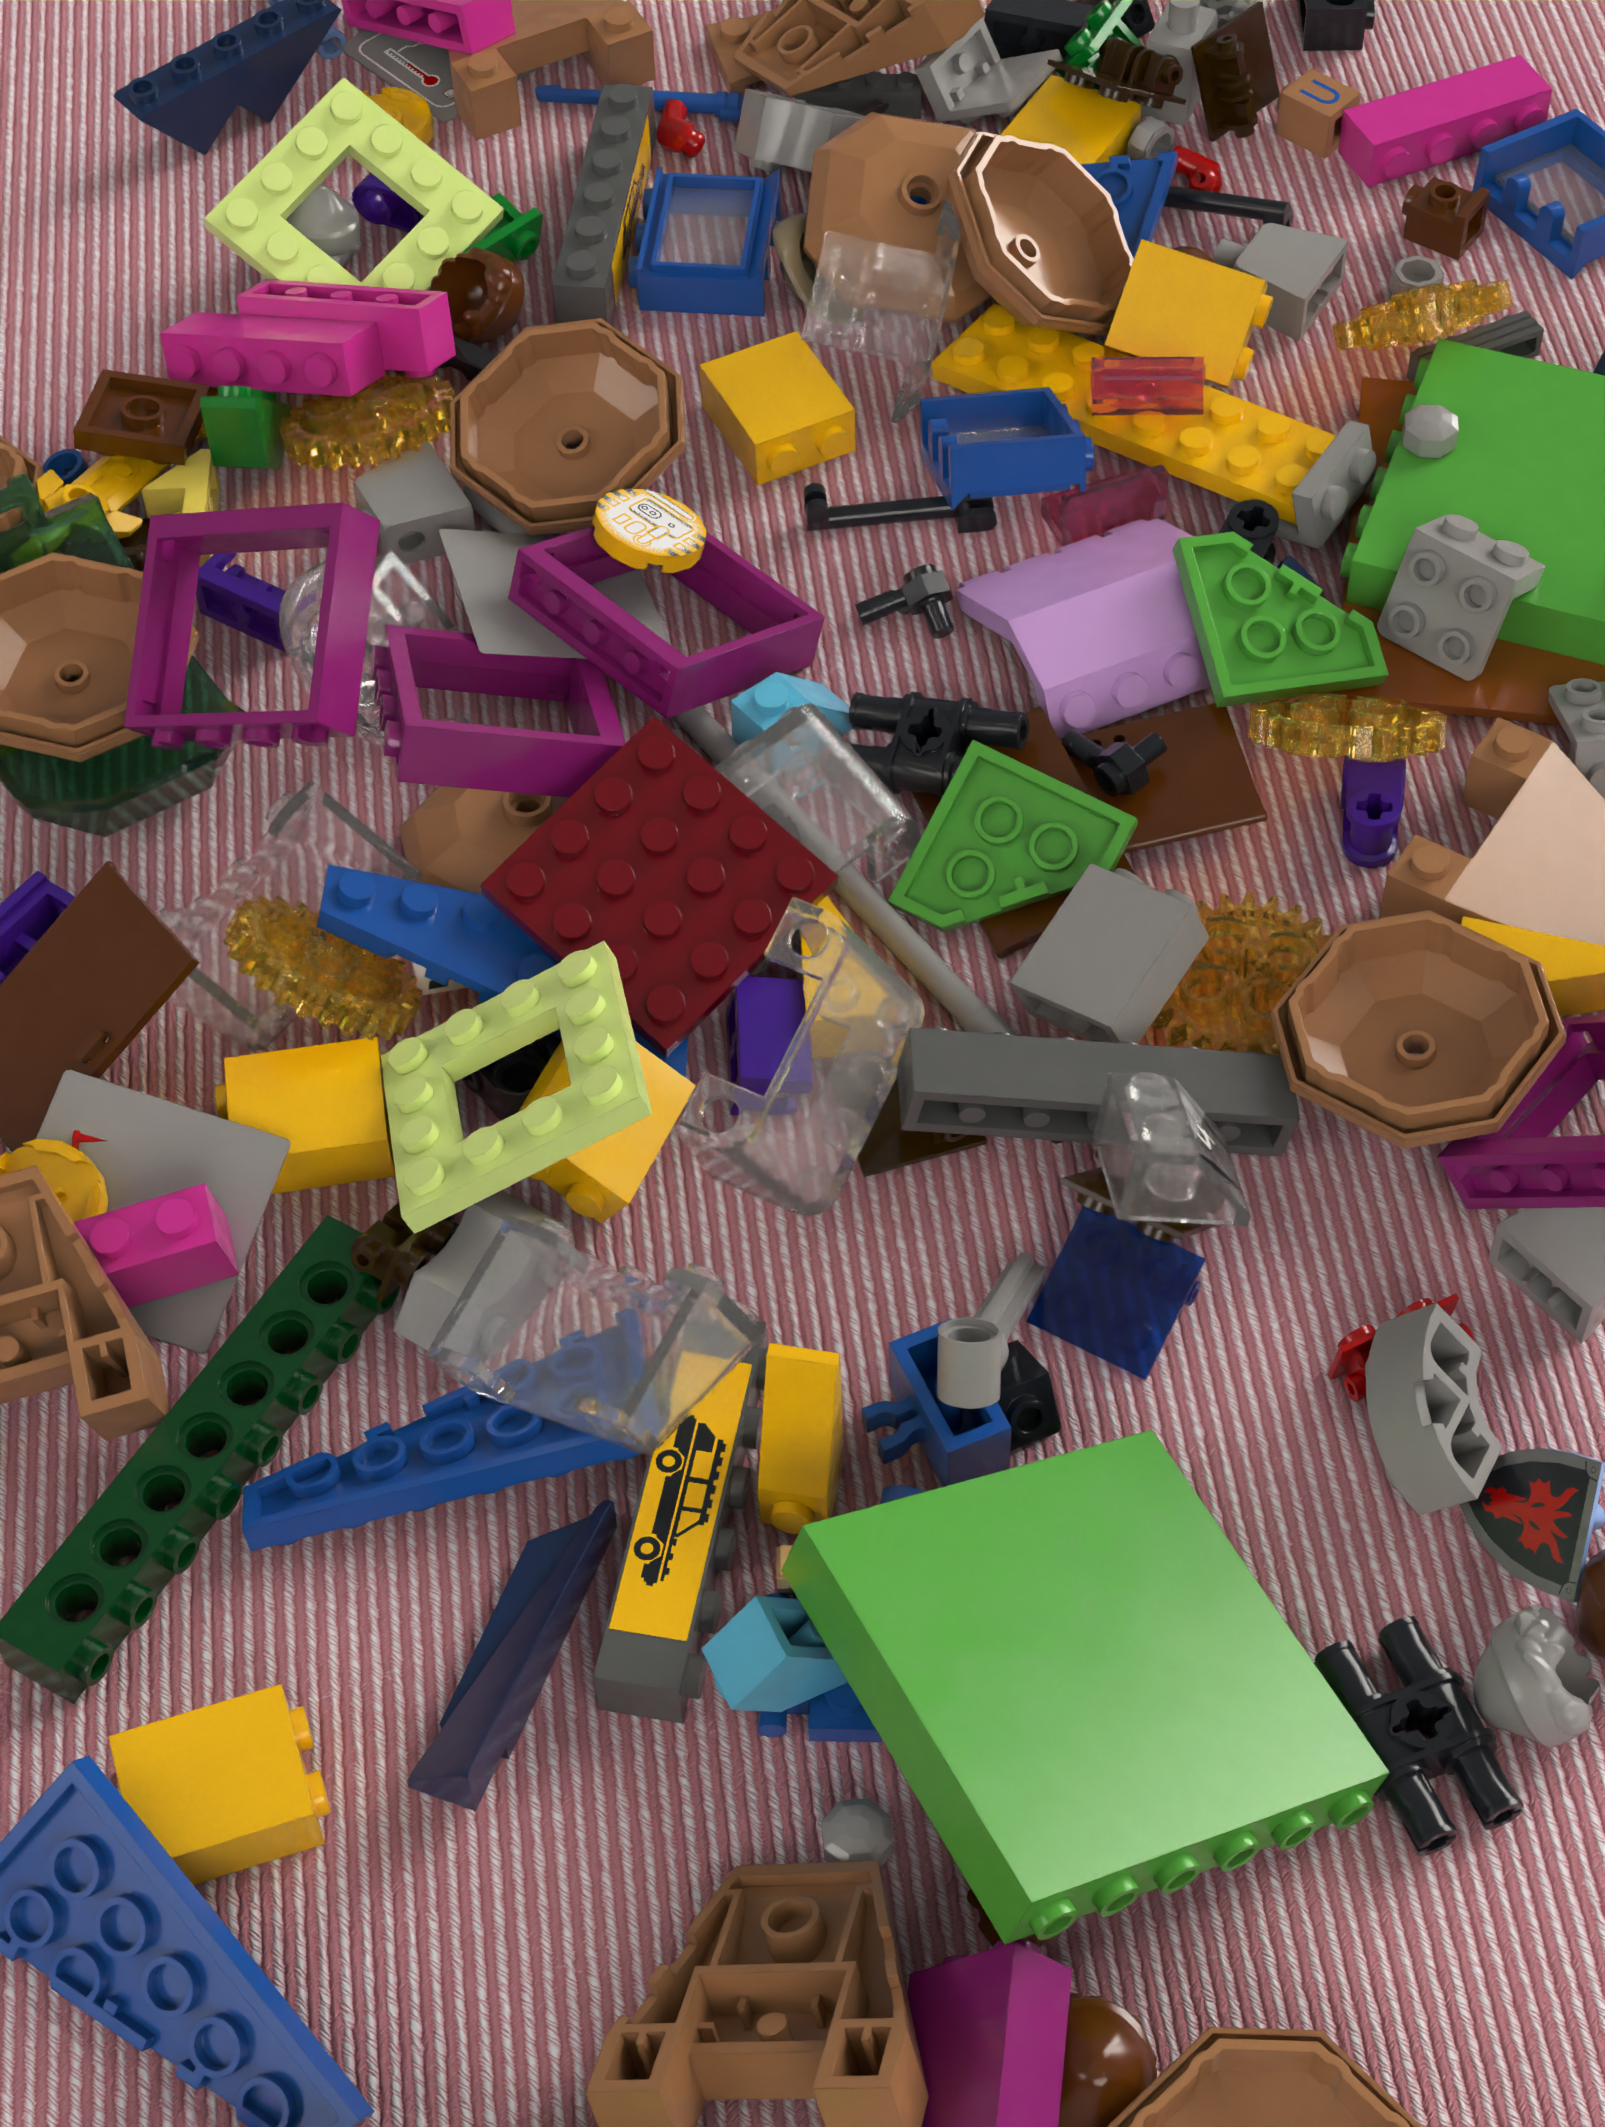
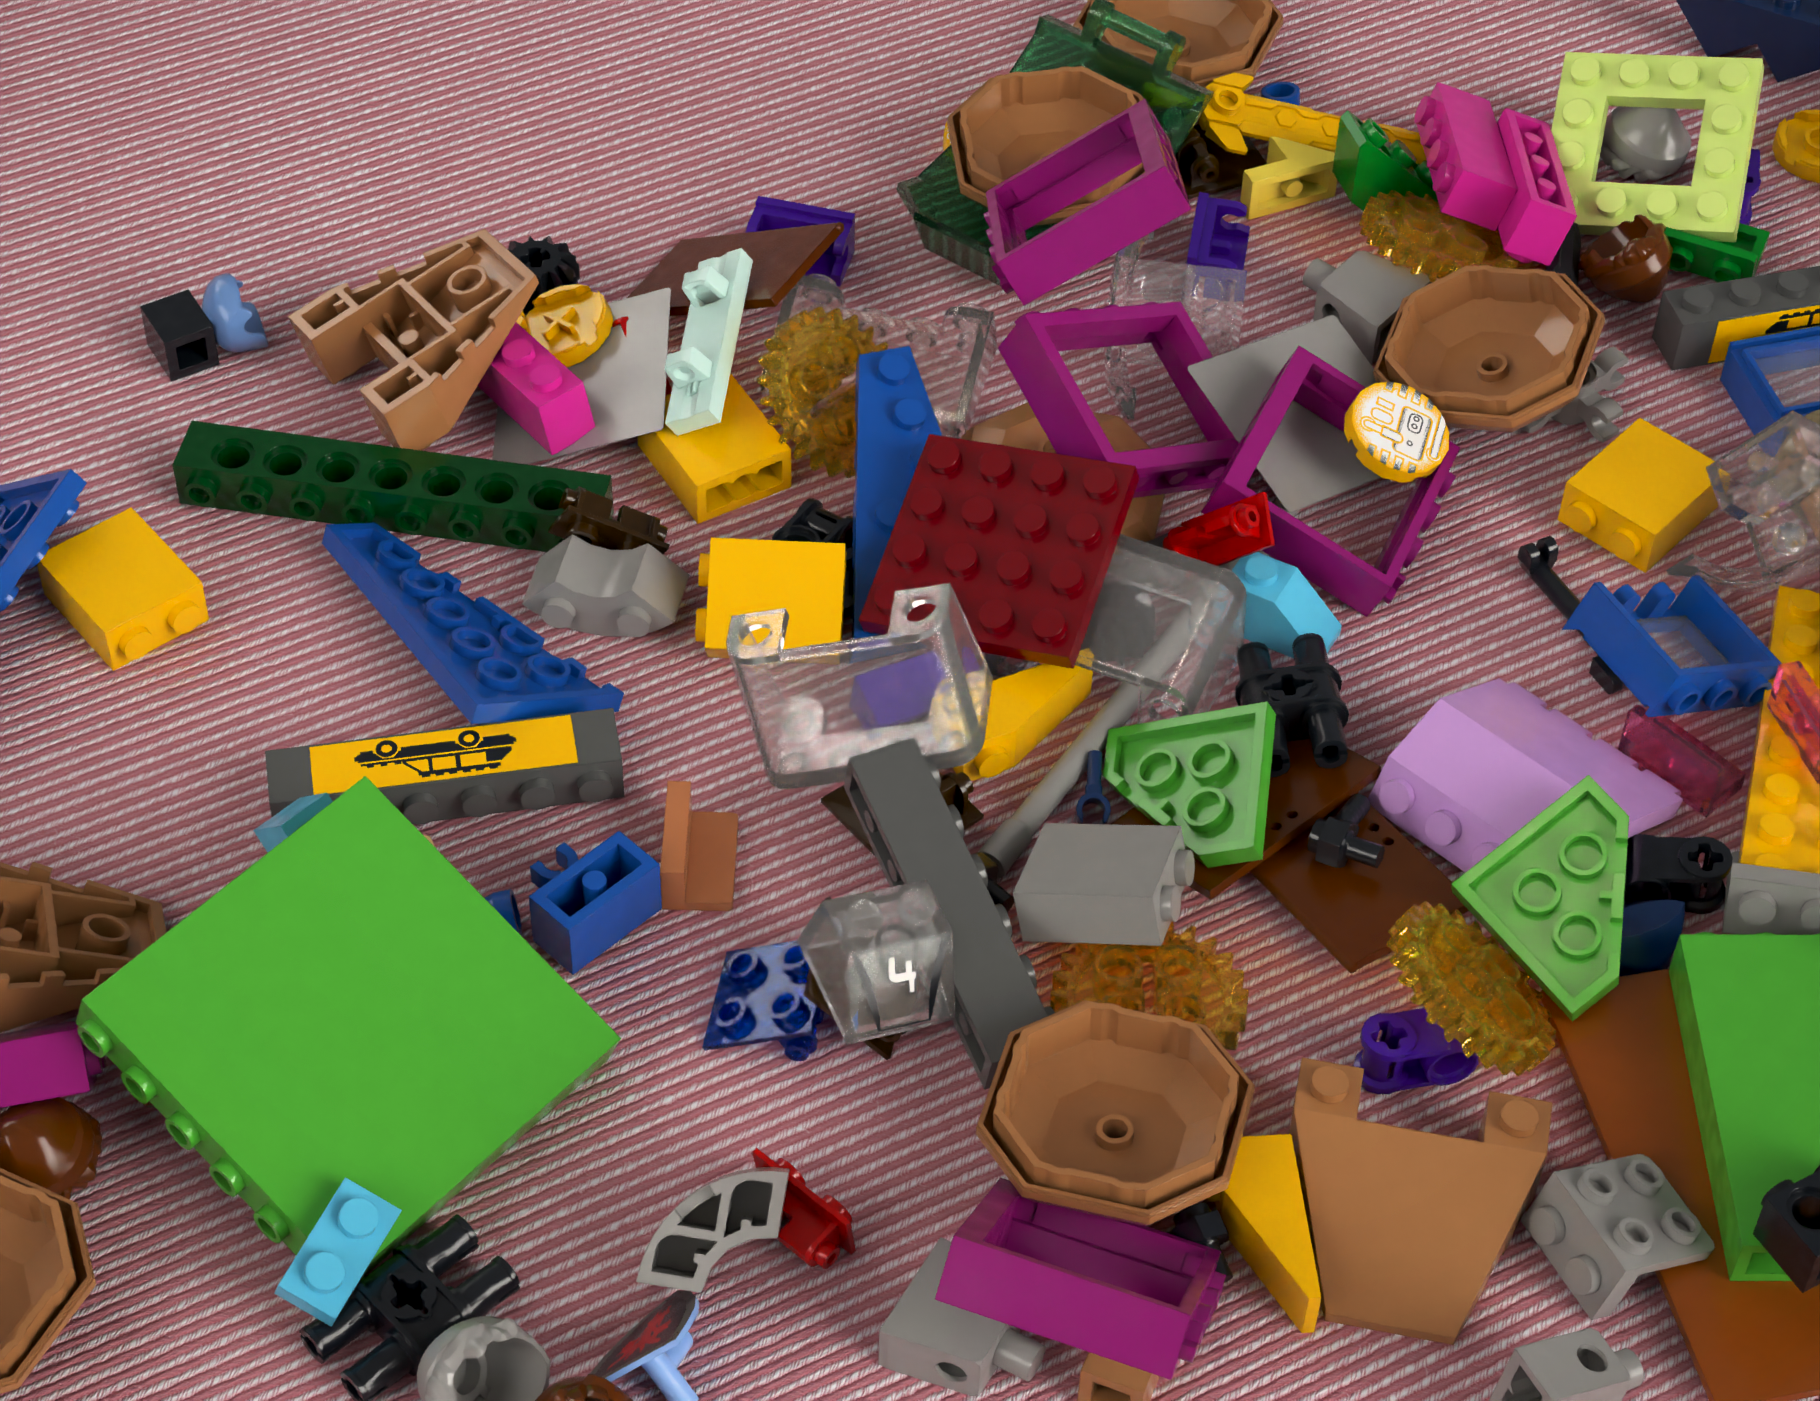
camera: 65 degrees right, 5 degrees down
(141, 417) = (1327, 91): reddish brown plate -> none
(201, 1048) = (709, 341): none -> light aqua hinge
(513, 1659) = (276, 719): dark blue wedge -> none
(591, 1342) = (552, 644): clear windscreen -> none
(607, 1090) = (679, 523): yellowish green plate -> none
(715, 700) = (1225, 532): none -> red hinge
(800, 1437) = (505, 809): yellow slope -> none
(882, 1302) = (697, 854): none -> nougat panel
(923, 592) = (1481, 656): black piece -> none
(968, 951) = (1093, 789): none -> dark blue hand
(976, 1347) = (606, 870): light grey axle -> none
(1027, 1398) = (637, 946): black bracket -> none
(1368, 1764) = (337, 1252): none -> medium azure plate
(1455, 593) = (1701, 1015): light grey bracket -> none

